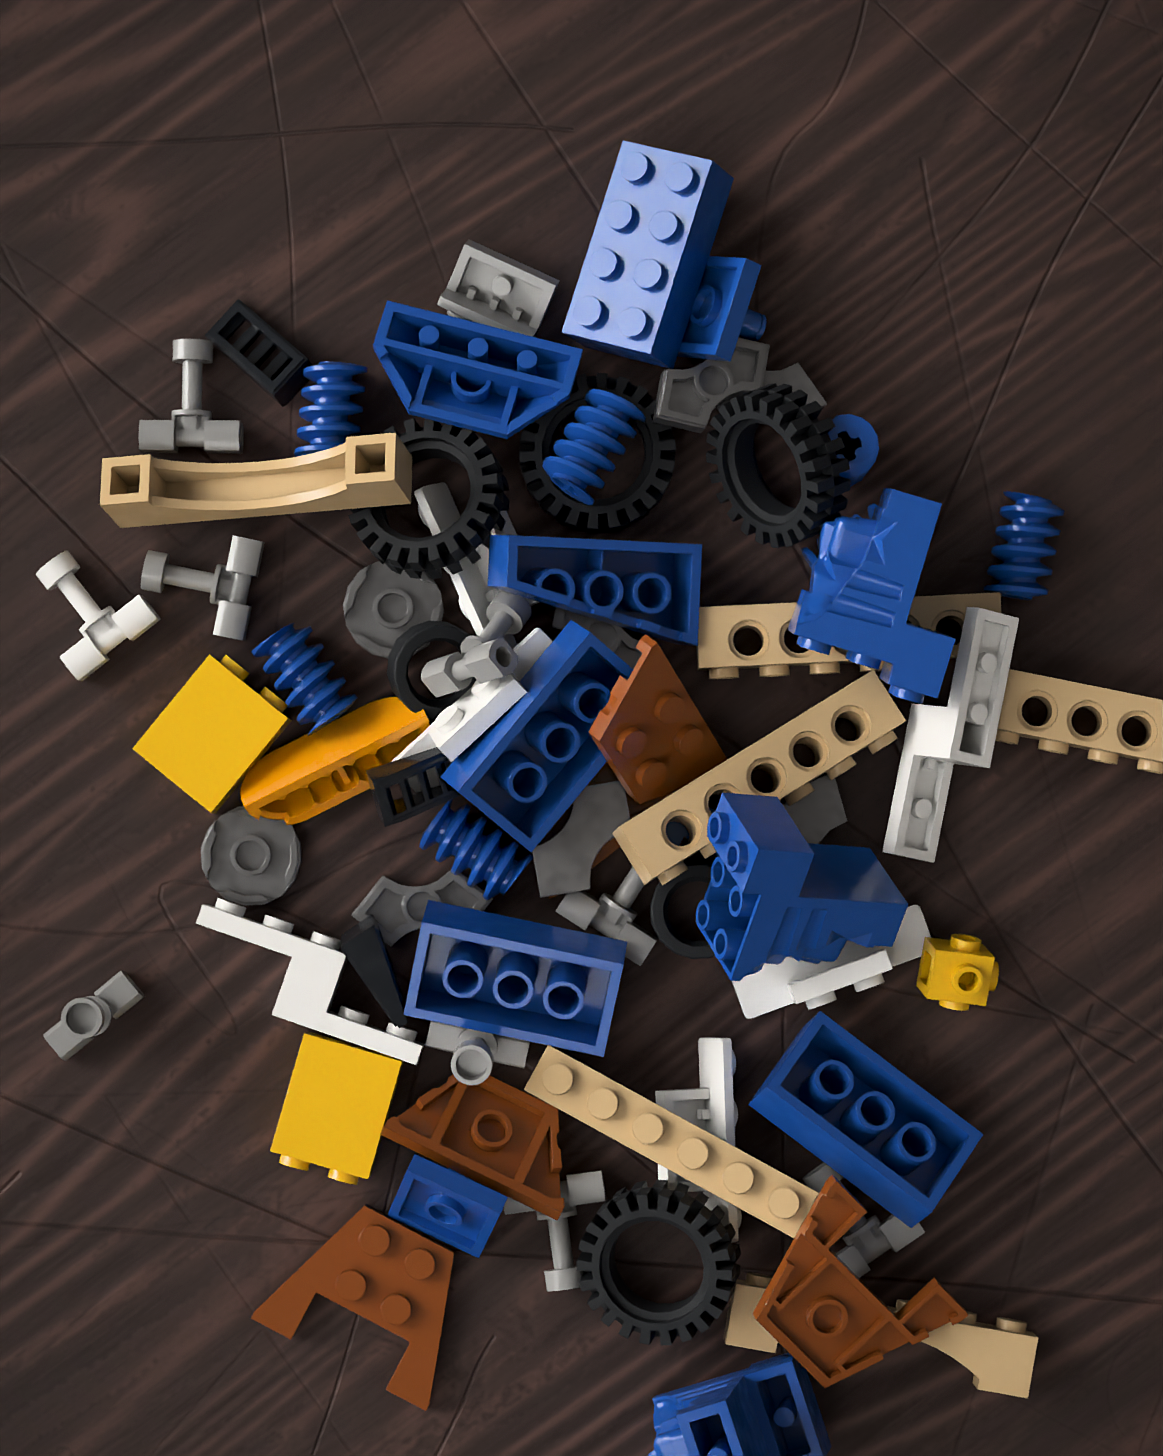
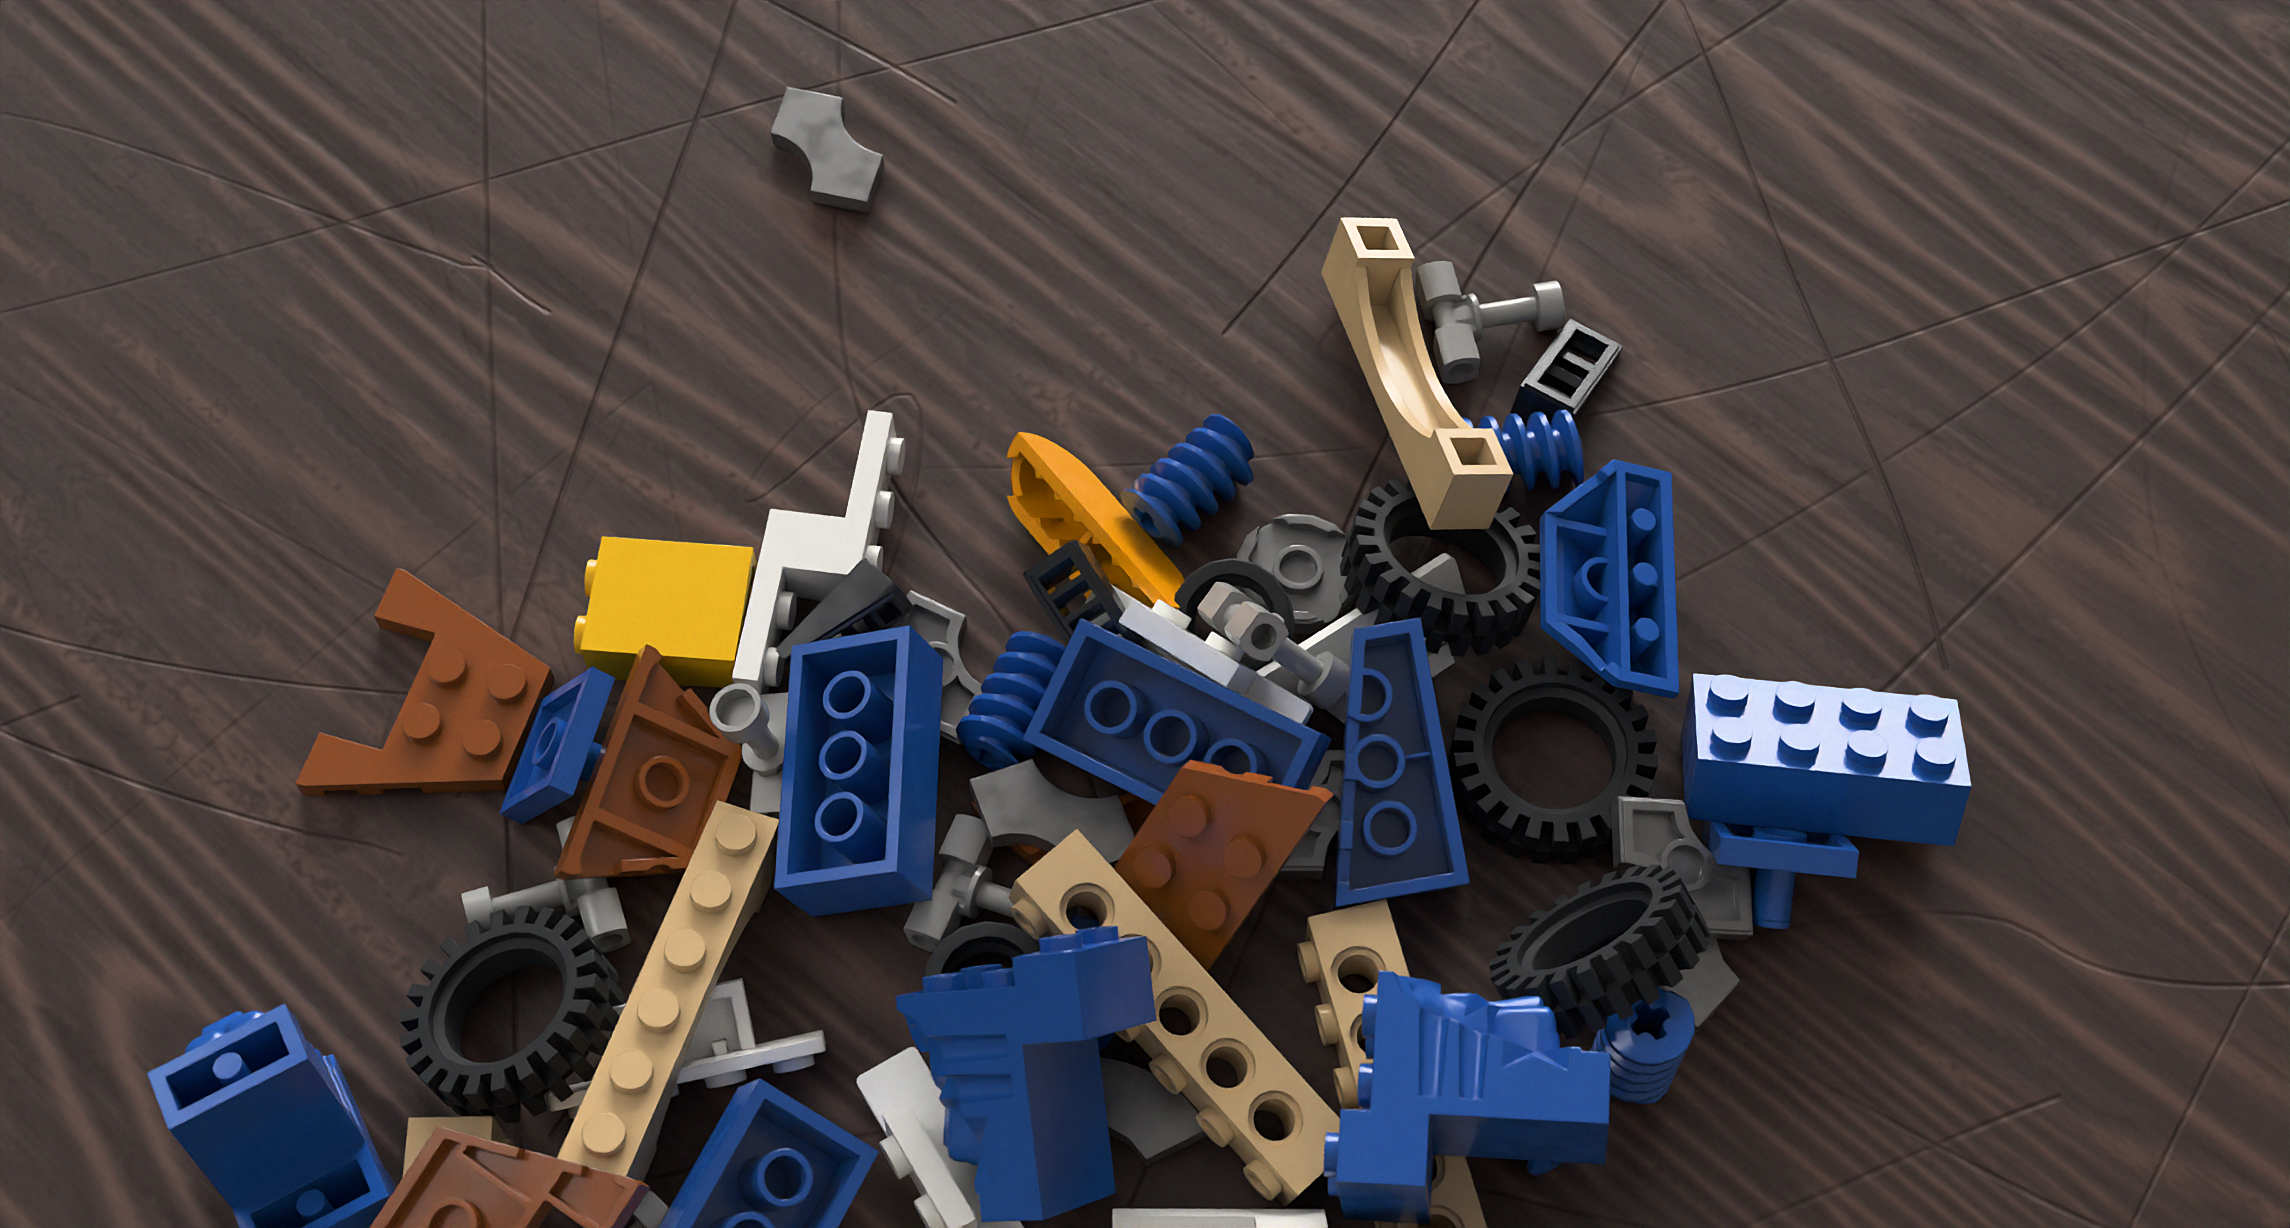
camera: 80 degrees right, 25 degrees down
(92, 1015) = (726, 323): light grey bar -> none
(102, 628) = (1202, 270): white bar -> none
(213, 732) = (1102, 399): yellow brick -> none
(226, 586) = (1280, 383): light grey bar -> none
(250, 857) = (959, 476): flat silver tile -> none
(497, 291) = (1720, 609): light grey bracket -> none
(590, 442) = (1563, 725): blue piece -> none

